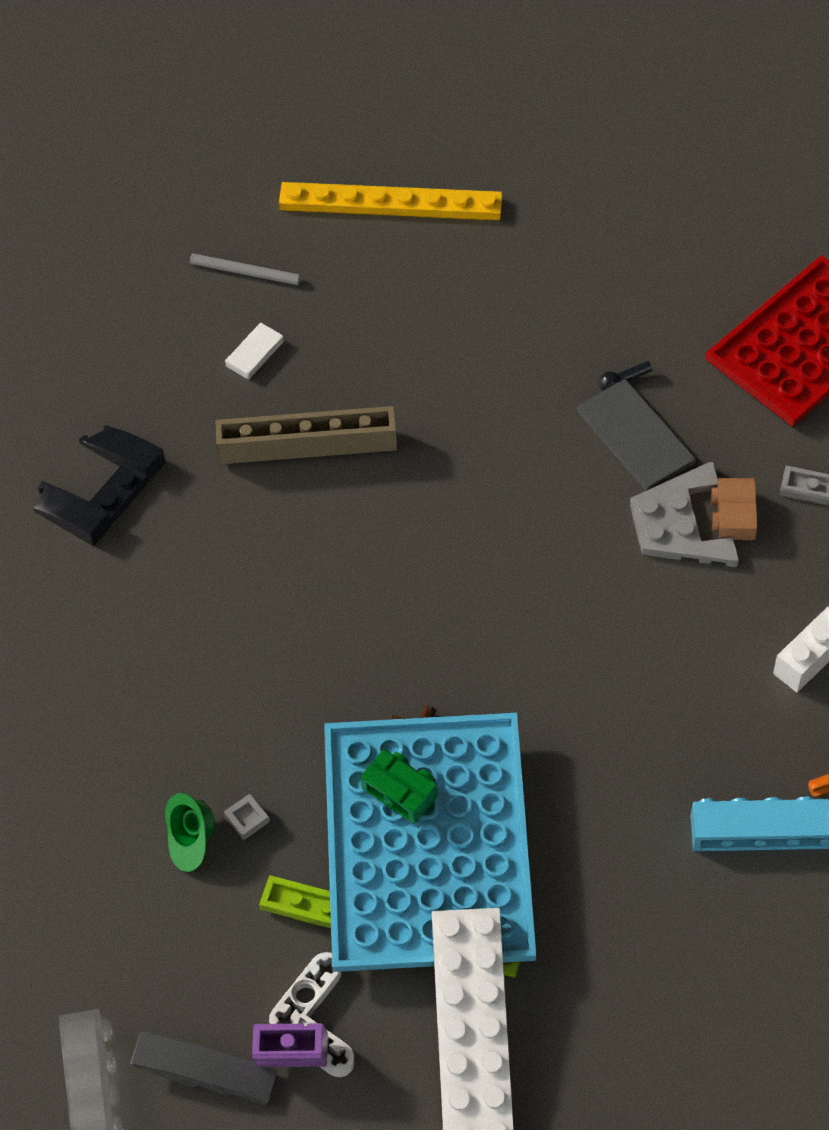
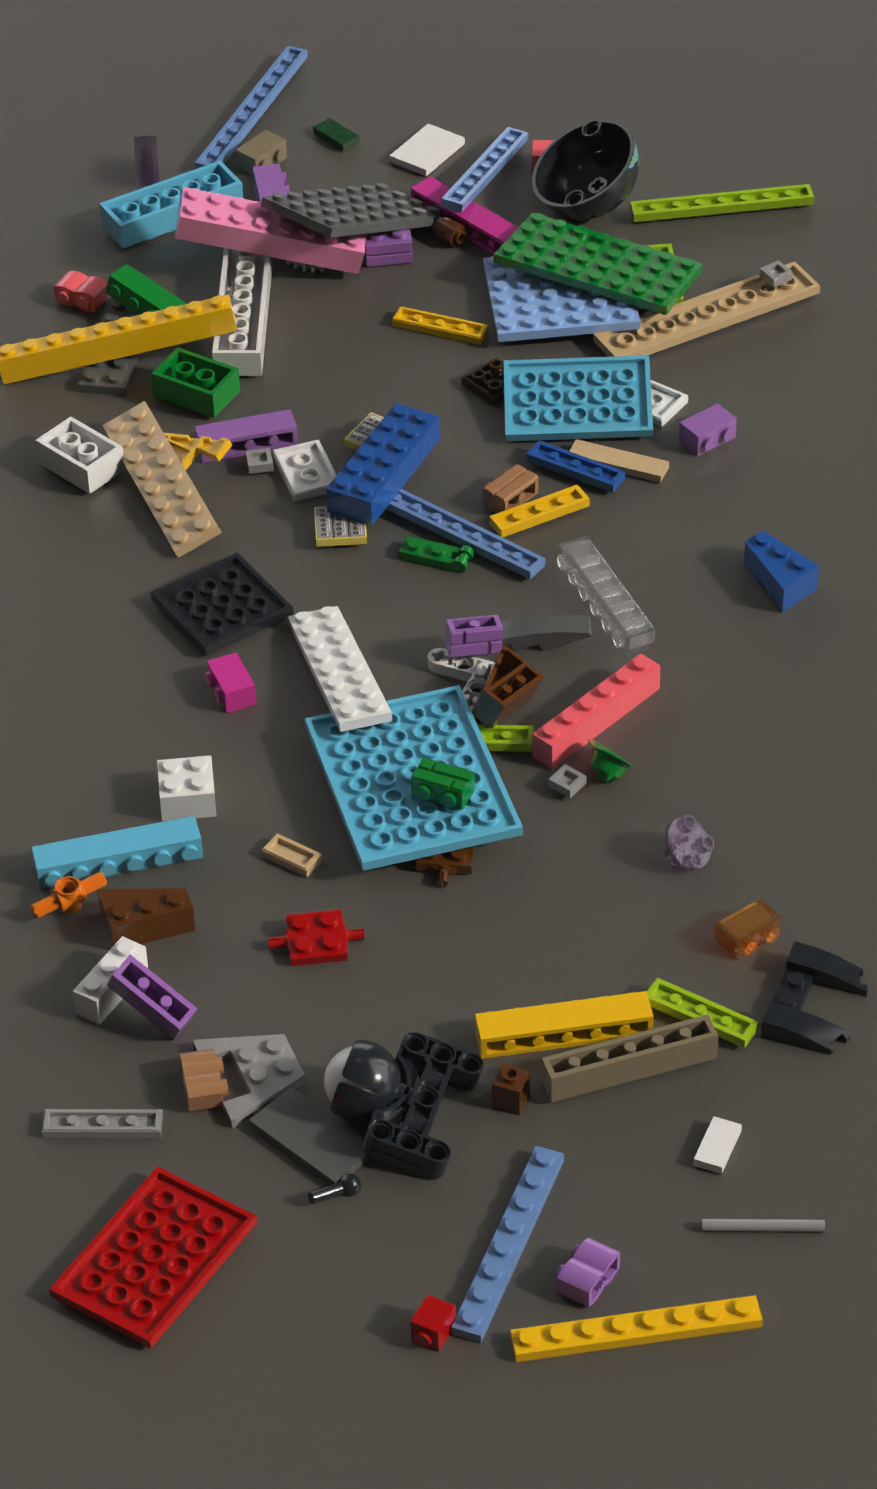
camera: 165 degrees right, 15 degrees down
(128, 570) = (748, 928): none -> clear orange brick
(145, 685) = (687, 843): none -> clear purple plate
(175, 910) = (596, 711): none -> coral brick
(216, 486) = (687, 1005): none -> lime plate
(279, 948) = (506, 688): none -> reddish brown wedge
(356, 496) = (562, 1024): none -> yellow brick
(416, 247) = (587, 1271): none -> medium lavender brick
(431, 432) = (511, 1089): none -> reddish brown brick
(475, 298) = (507, 1245): none -> medium blue plate
(546, 425) = (373, 1087): none -> black beam
(566, 227) = (432, 1323): none -> red brick
(584, 665) = (316, 937): none -> red plate
(588, 788) = (291, 855): none -> tan tile
(614, 1072) = (230, 682): none -> dark pink brick
(697, 900) = (186, 788): none -> white brick
(771, 722) = (145, 913): none -> reddish brown wedge
(778, 586) = (151, 997): none -> medium lavender brick

